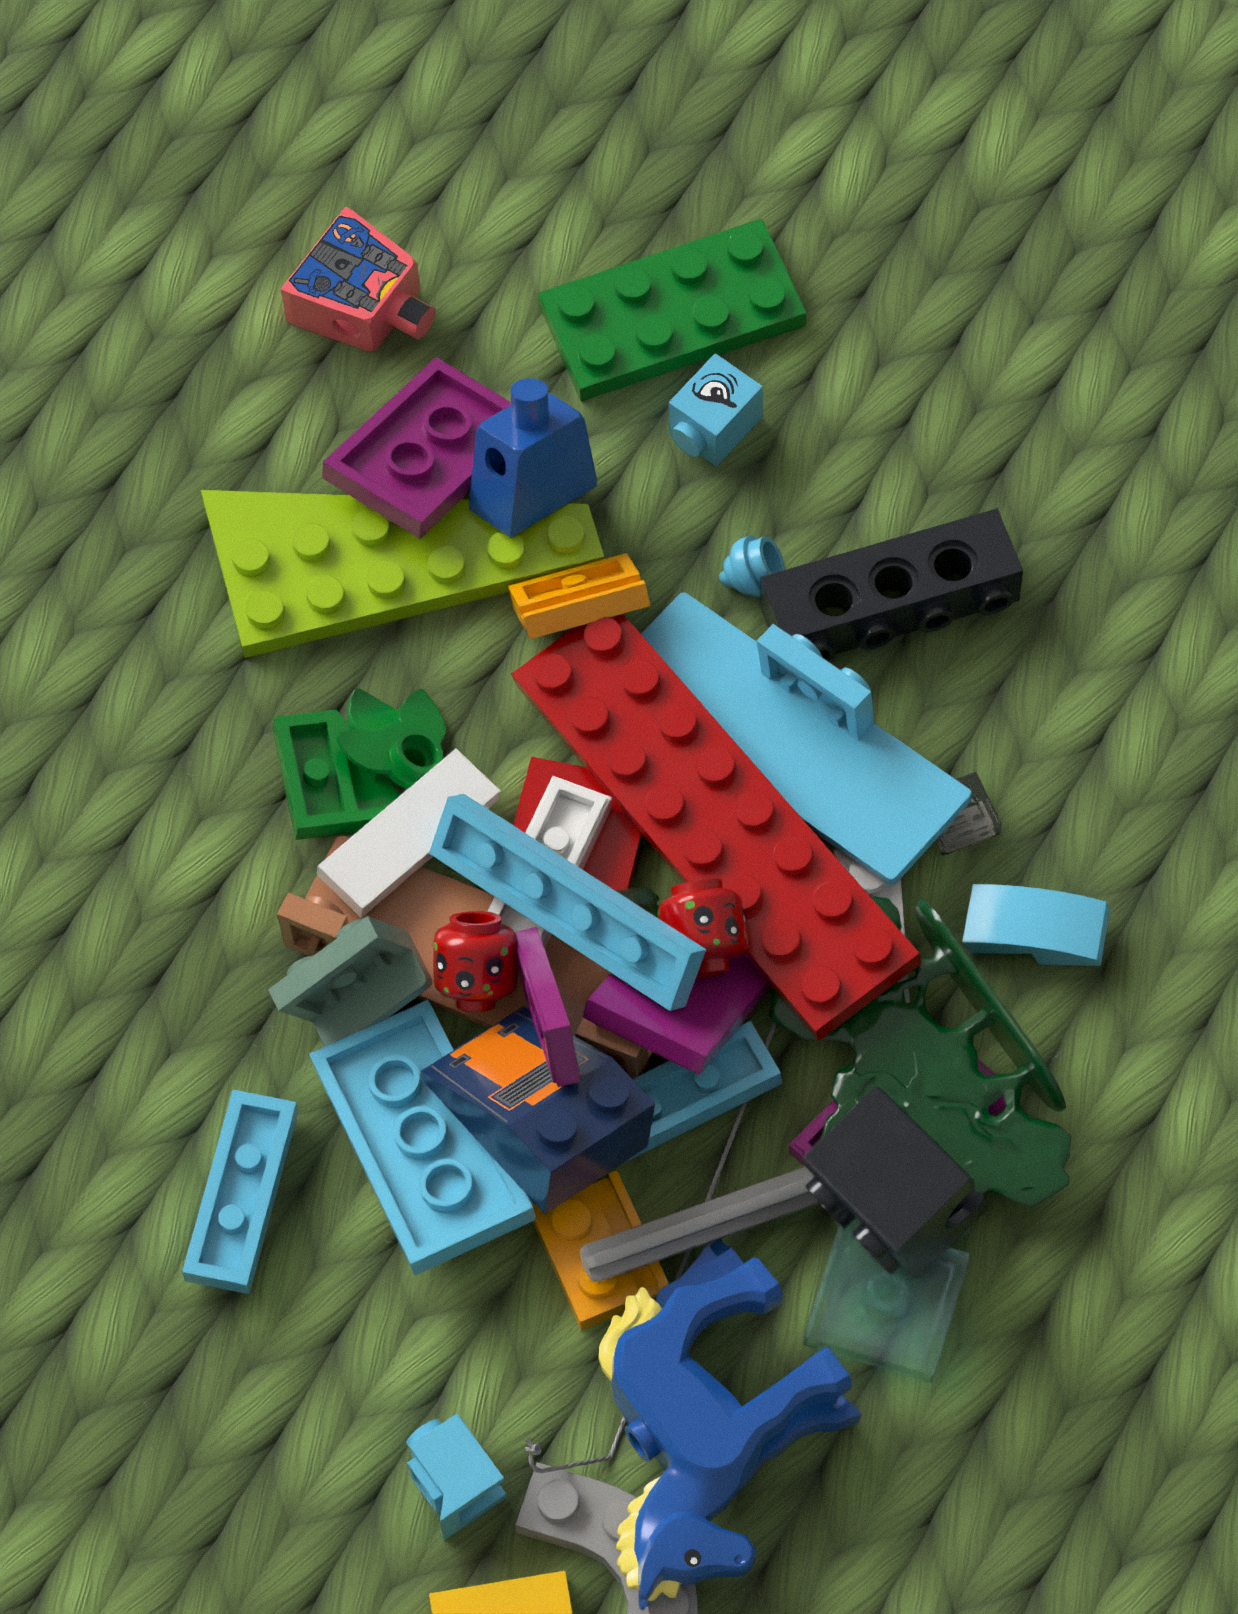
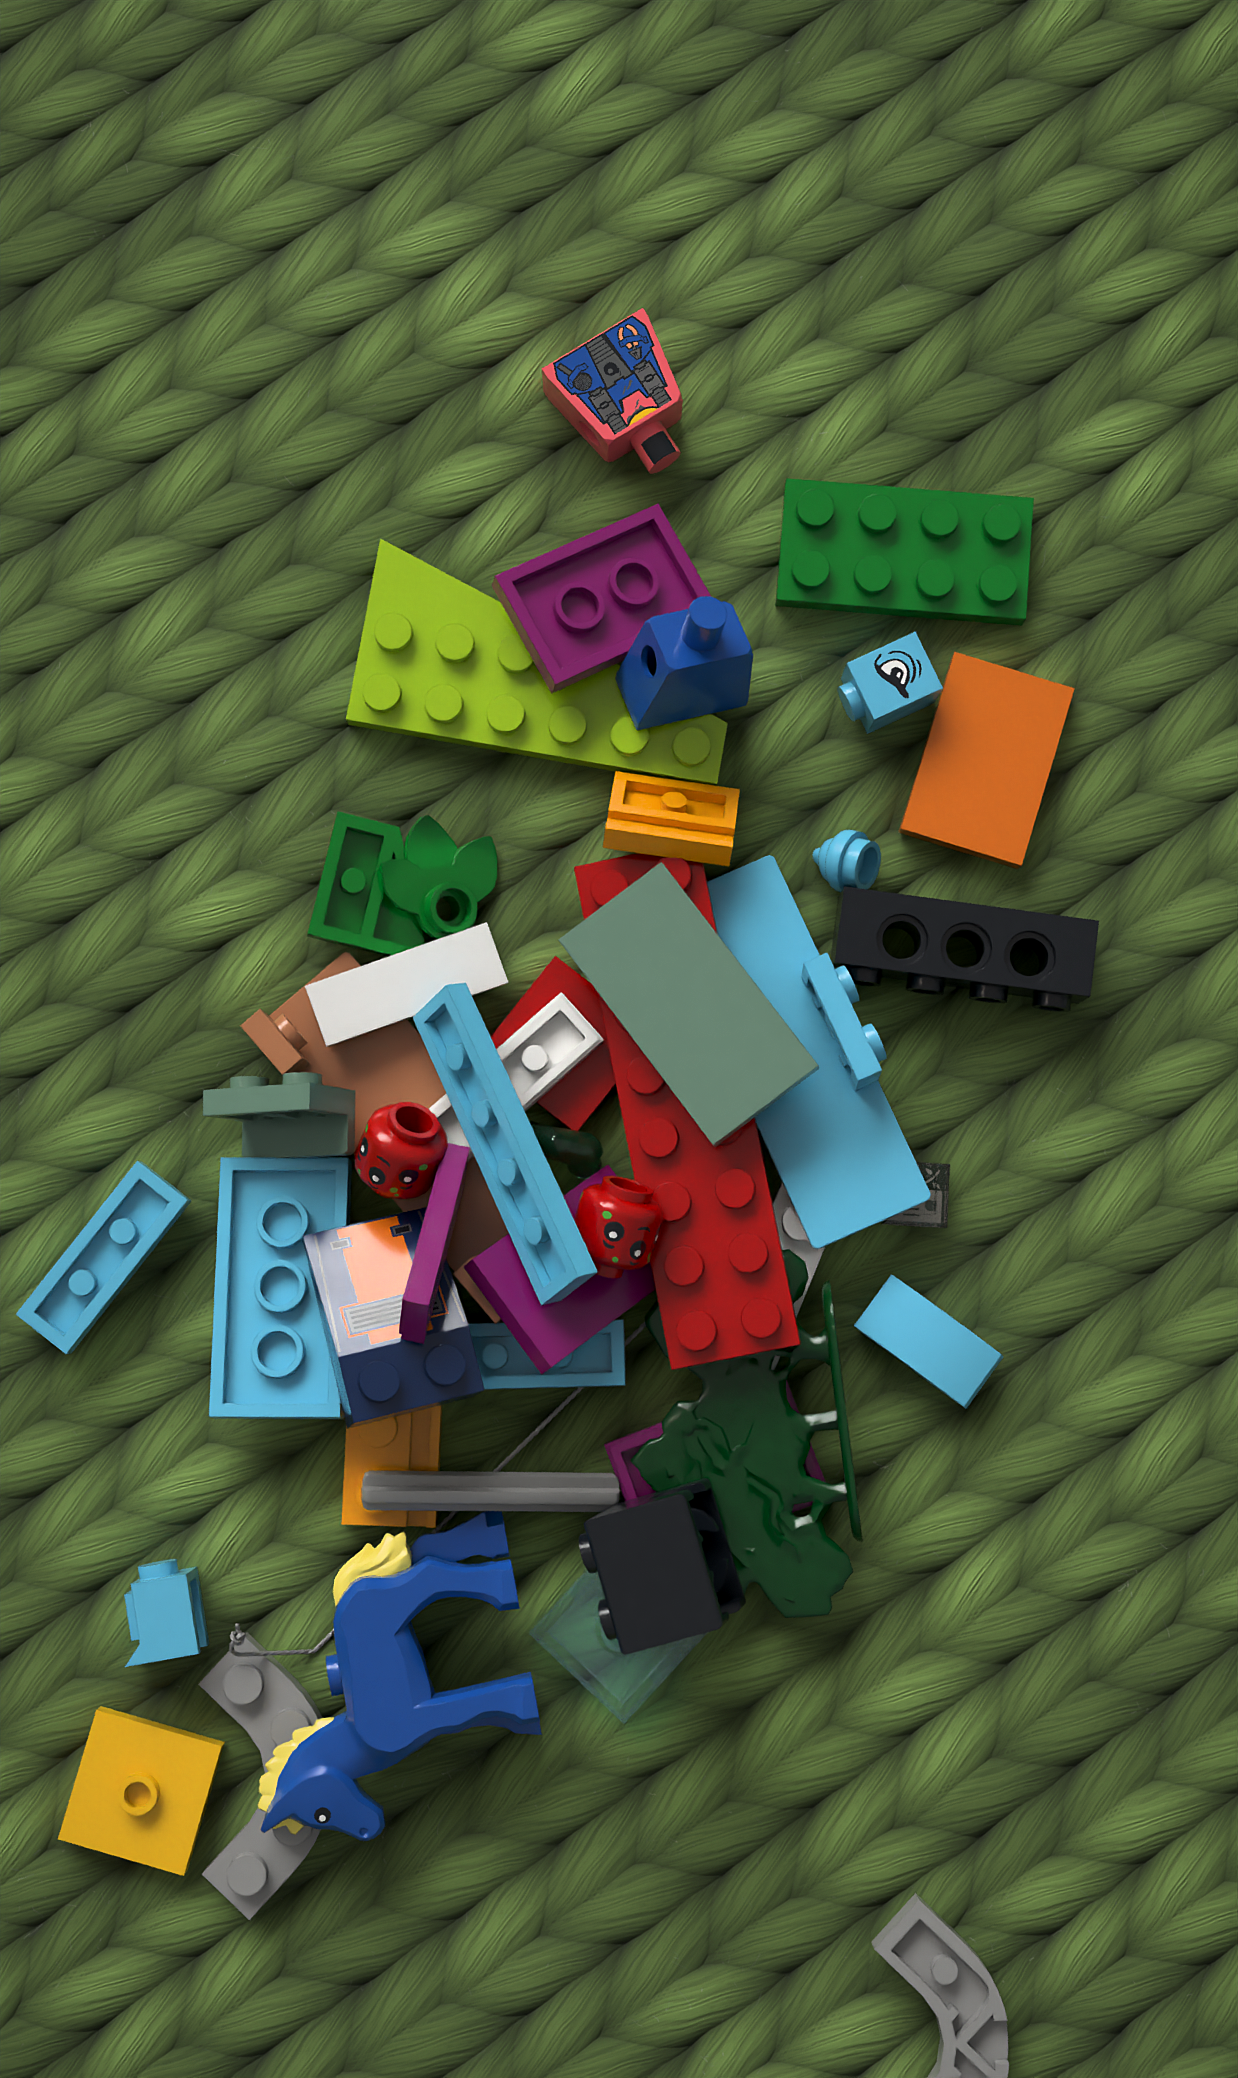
camera: 20 degrees right, 20 degrees up
(673, 723) = (688, 1004): none -> sand green tile
(832, 440) = (986, 760): none -> orange tile

